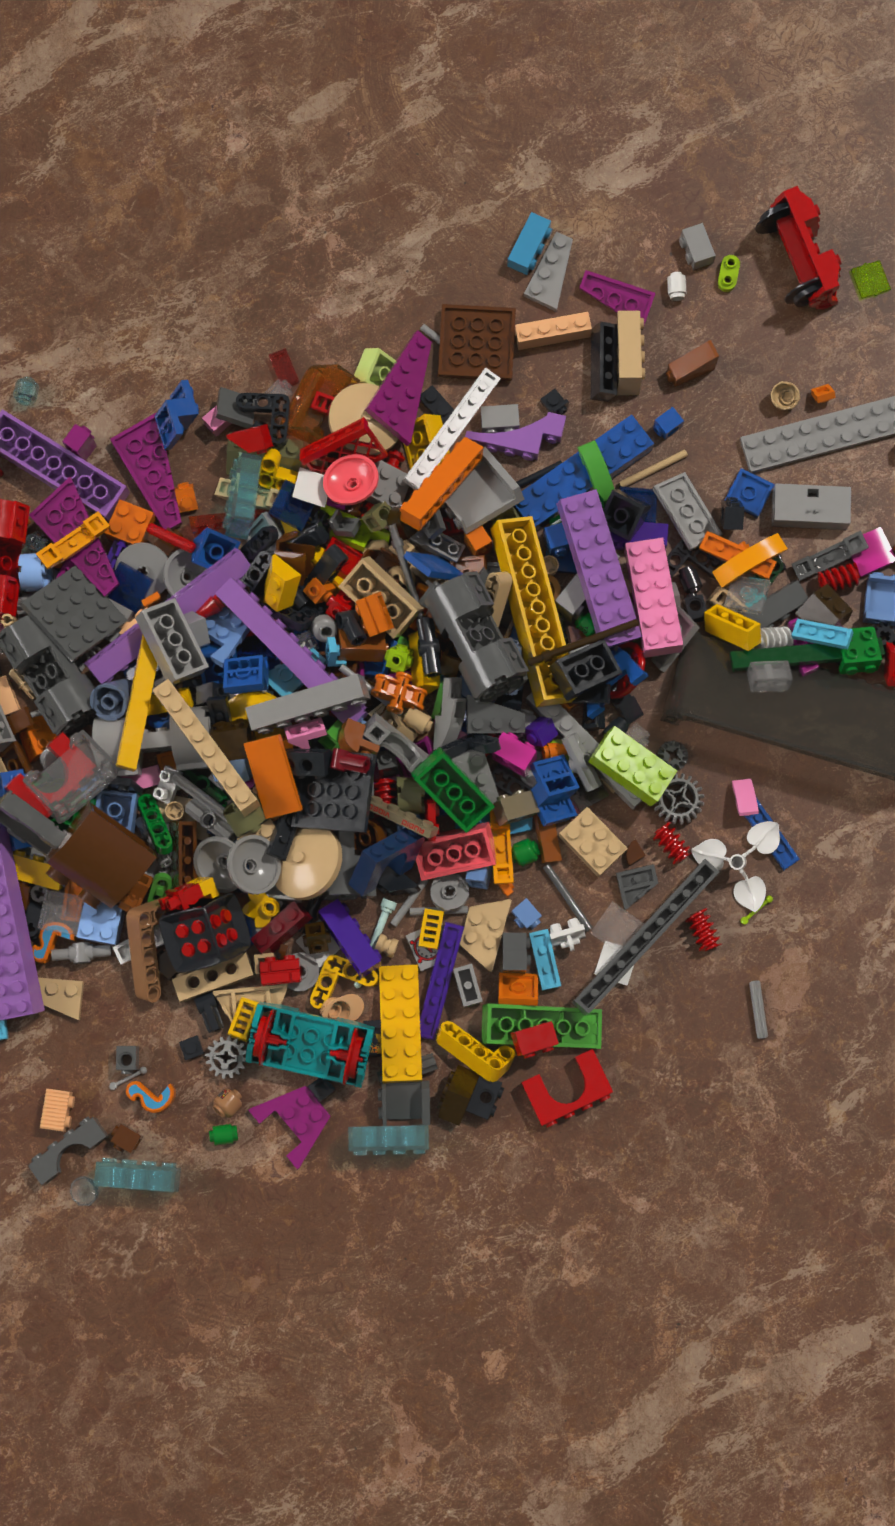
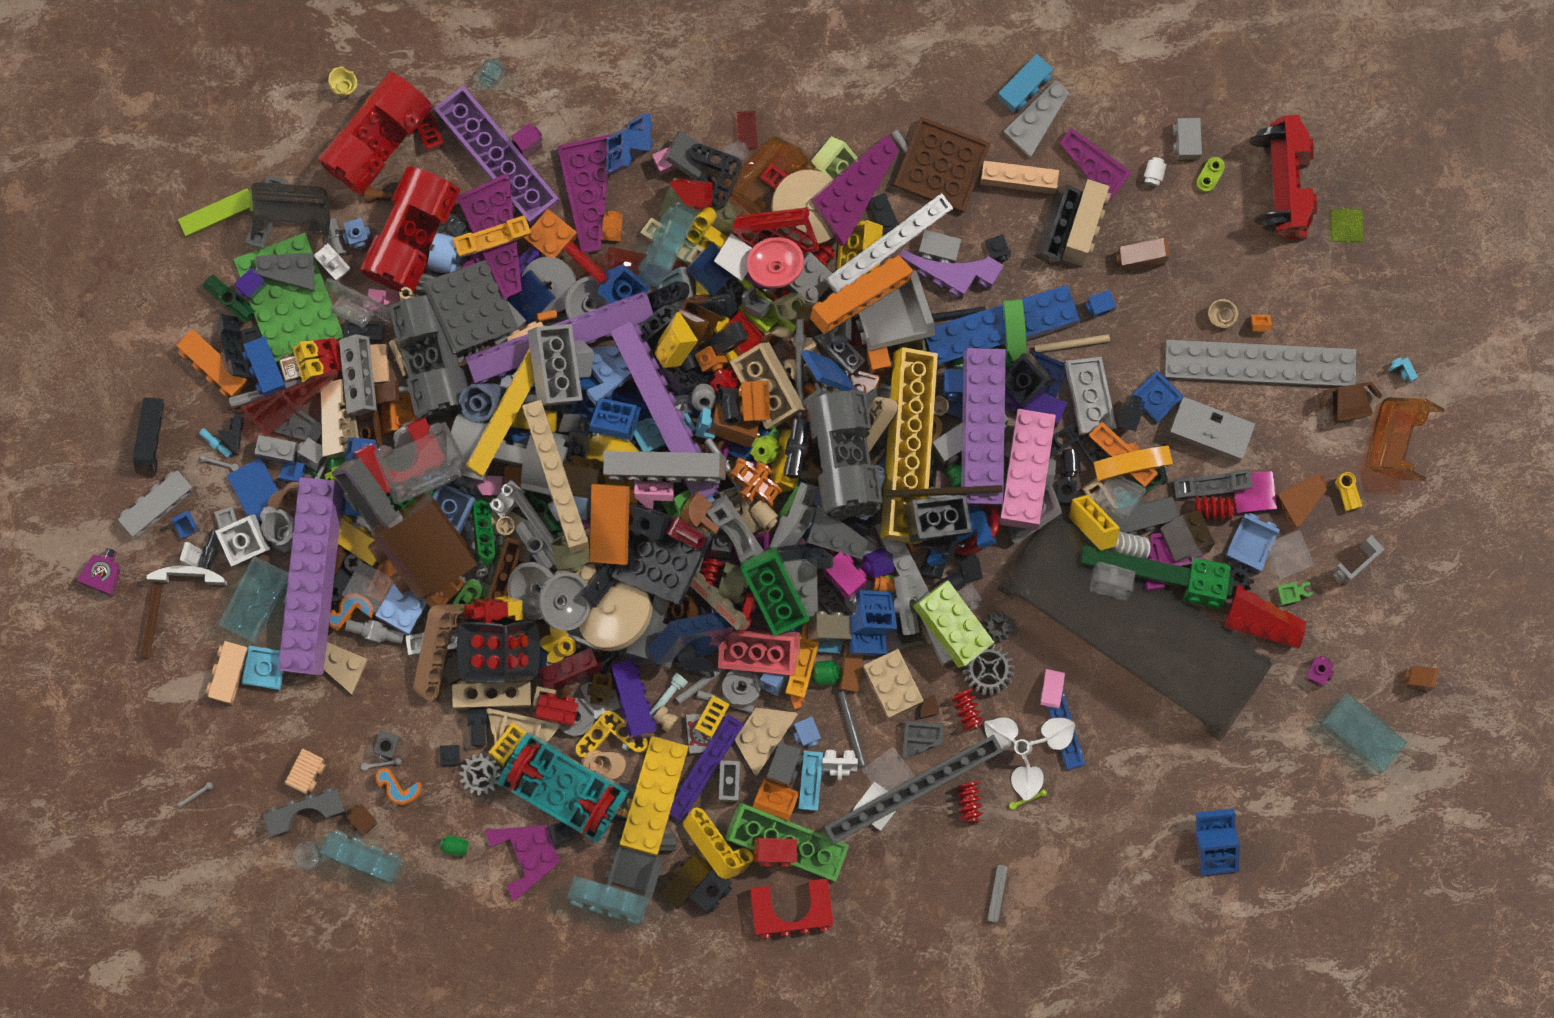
camera: 10 degrees right, 0 degrees up
(211, 606) = (602, 342): red cone -> none
(227, 1103) = (467, 817): medium nougat head -> none
(822, 634) = (1177, 556): medium azure plate -> none

